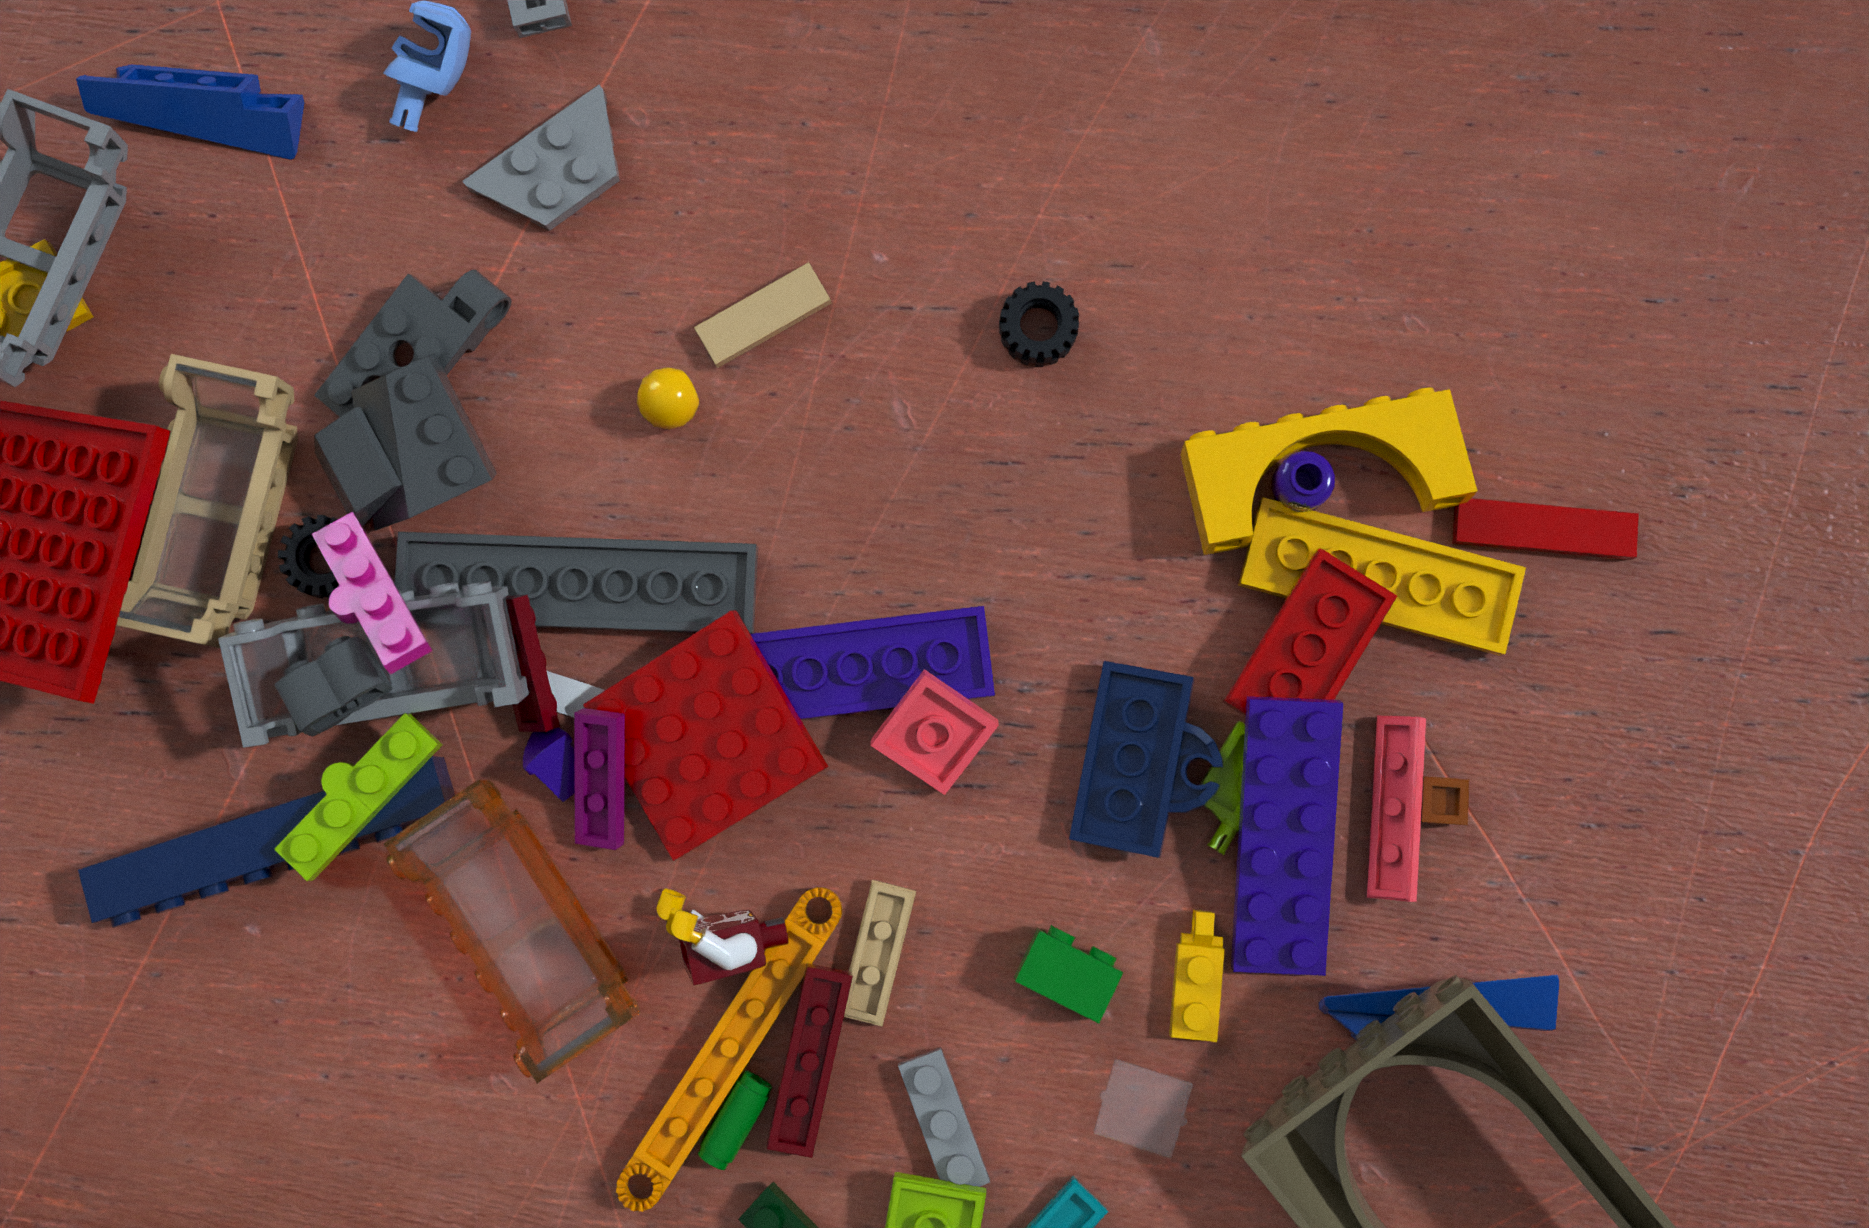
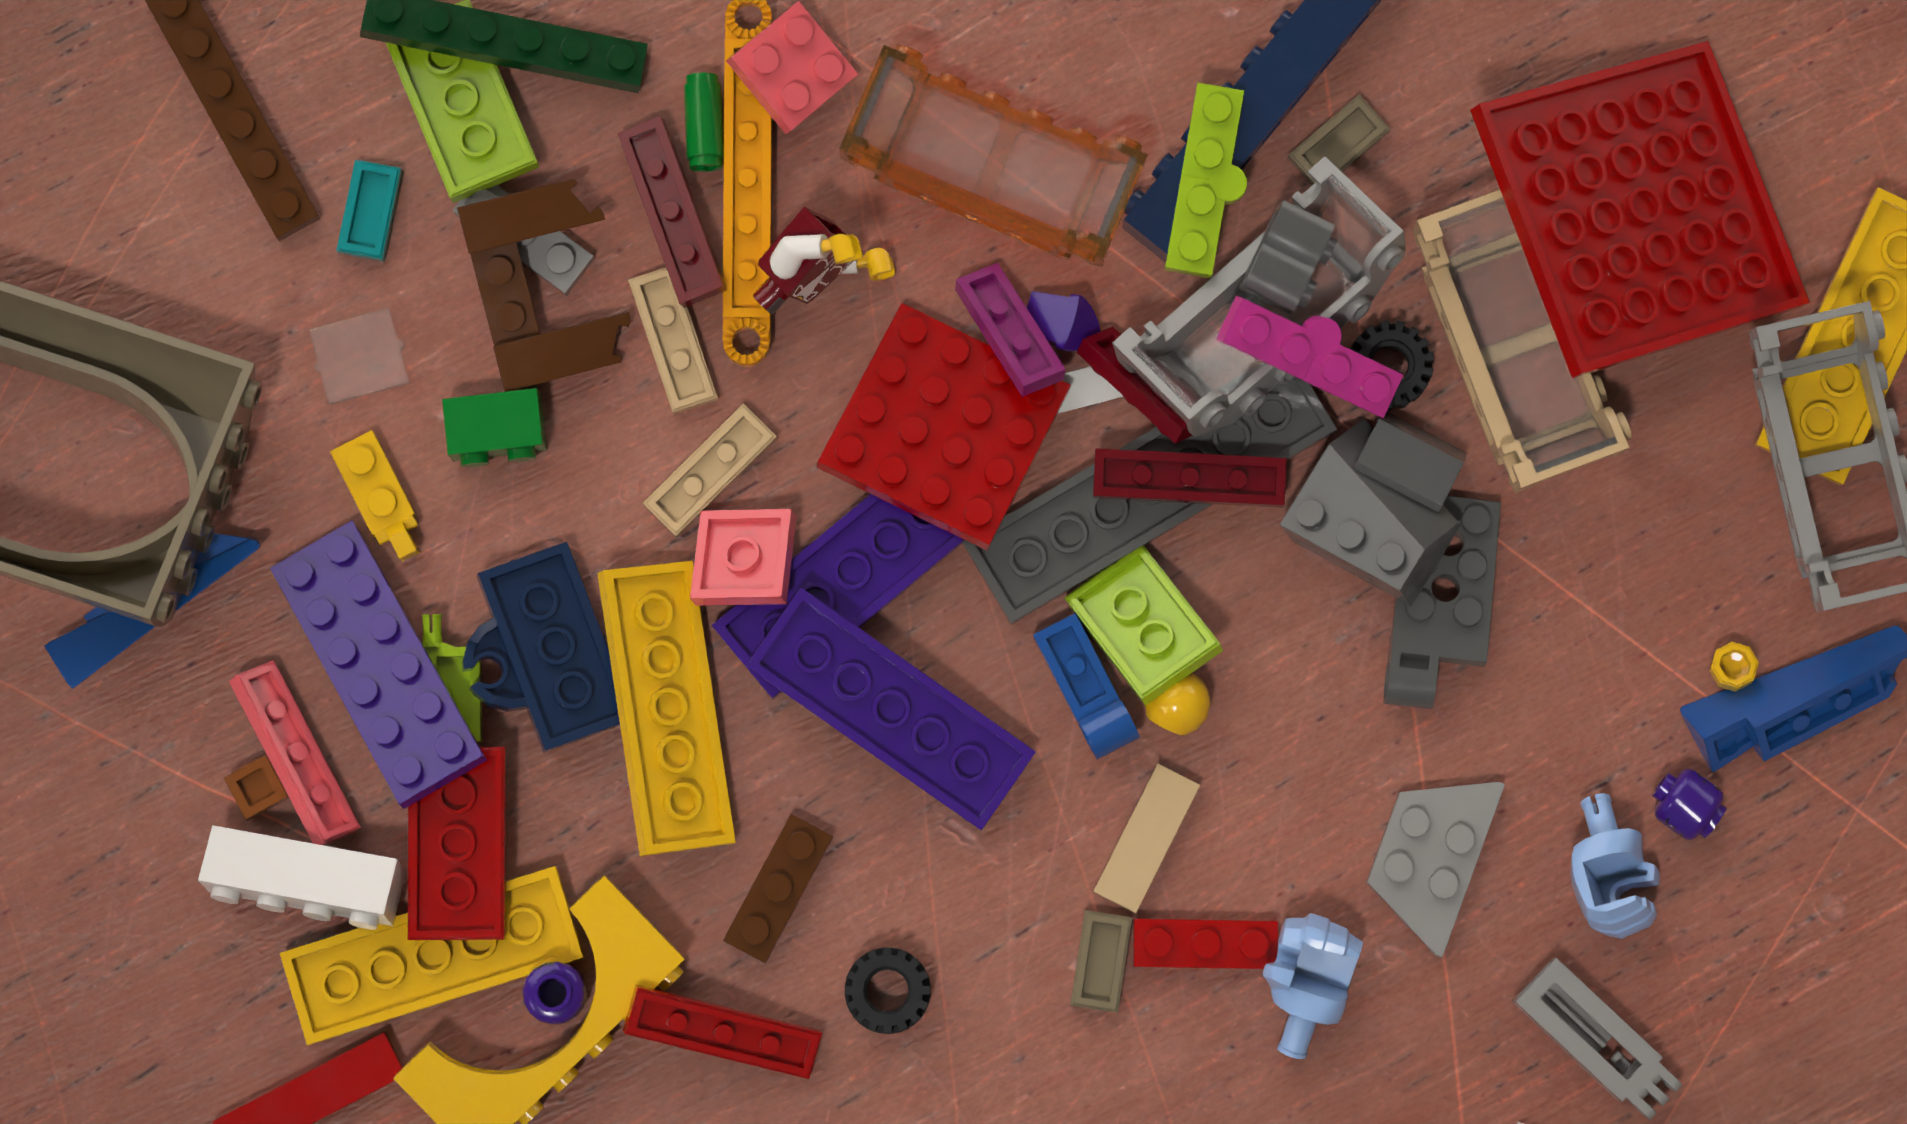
camera: 145 degrees right, 0 degrees up
(228, 158) = (1733, 666): none -> yellow tile
(233, 766) = (1341, 138): none -> dark tan tile
(335, 77) = (1688, 804): none -> dark purple head
(537, 564) = (1189, 478): none -> dark red plate
(631, 1118) = (792, 67): none -> coral plate
(652, 473) = (1143, 624): none -> lime tile
(707, 127) = (1311, 977): none -> light blue piece
(730, 457) = (1086, 686): none -> blue plate
(771, 208) = (1204, 943): none -> red plate
(860, 245) = (1101, 961): none -> dark tan tile
(896, 537) = (890, 708): none -> dark purple plate
(916, 824) = (710, 470): none -> tan tile
(971, 1136) = (491, 237): none -> reddish brown wedge
(1073, 457) = (778, 888): none -> reddish brown plate
(1073, 651) = (666, 709): none -> yellow plate
(1190, 370) = (722, 1032): none -> red tile
(1452, 702) = (302, 877): none -> white brick

